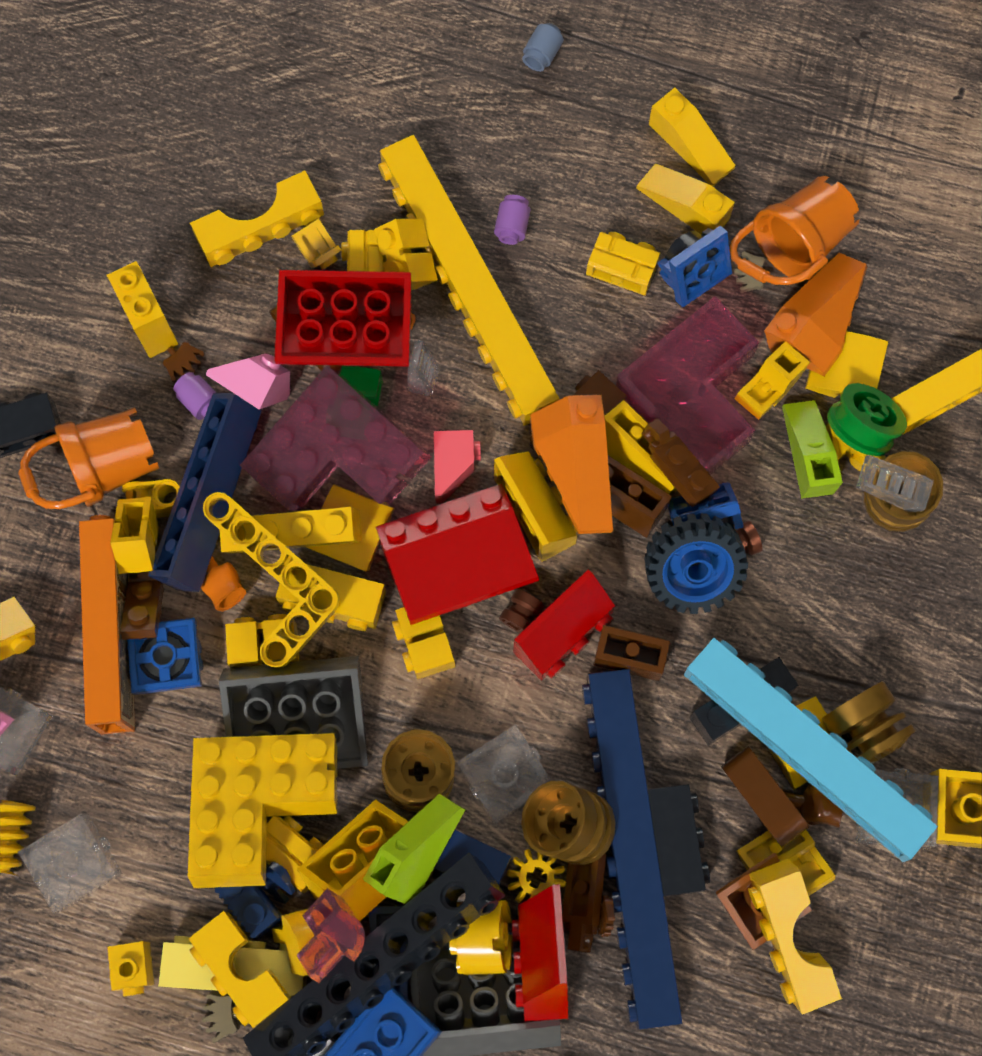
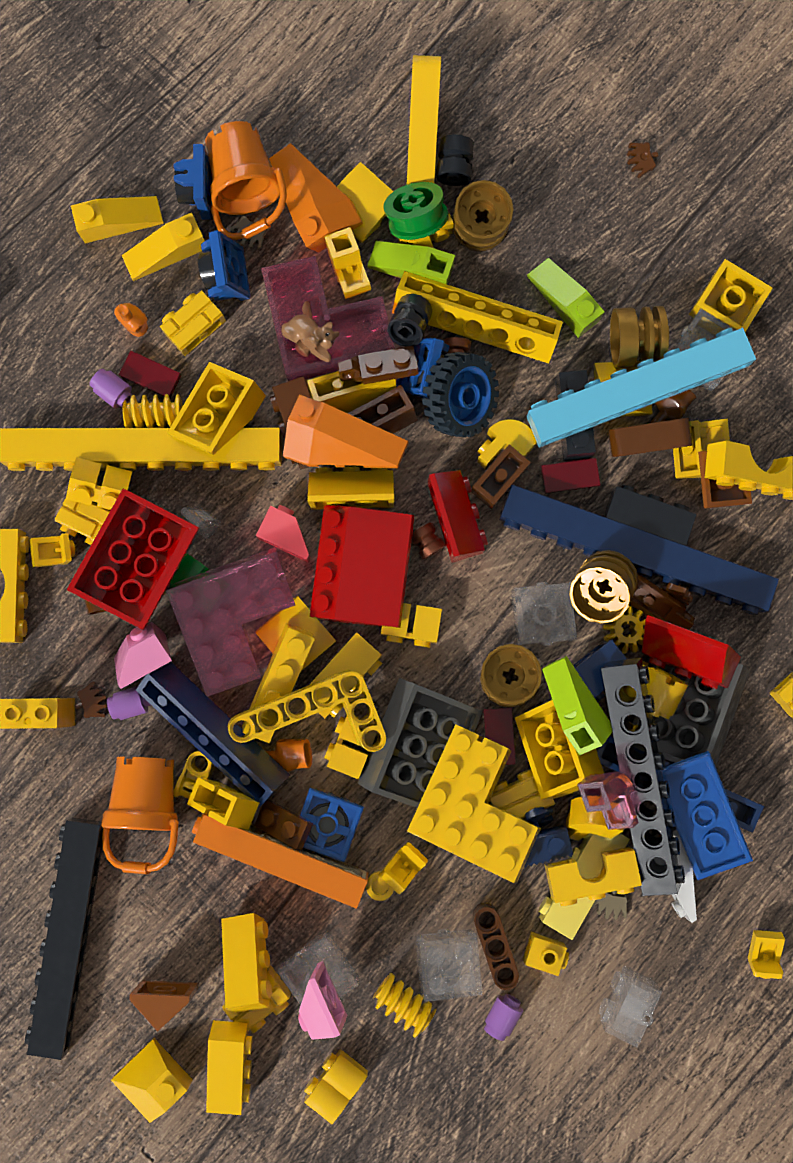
camera: 65 degrees left, 10 degrees up
(40, 954) = (503, 1017): none -> medium lavender brick
(98, 910) = (504, 956): none -> reddish brown beam
(125, 749) = (378, 888): none -> yellow tile
(154, 761) = (403, 867): none -> yellow bracket
(354, 795) = (499, 729): none -> dark red tile
(507, 271) = (151, 413): none -> yellow piece
(544, 327) = (216, 409): none -> yellow slope
(548, 250) = (150, 374): none -> dark red tile
(594, 203) = (132, 318): none -> orange piece
(673, 377) = (309, 335): none -> medium nougat animal
(675, 732) = (570, 476): none -> dark red tile
(683, 637) = (503, 434): none -> yellow brick
(745, 470) = (409, 320): none -> black wheel
(767, 186) = (194, 181): none -> blue piece
(791, 542) = (484, 318): none -> yellow brick
(869, 629) = (566, 297): none -> lime slope
(914, 490) = (492, 212): clear slope -> none
(953, 433) = (454, 156): none -> black wheel

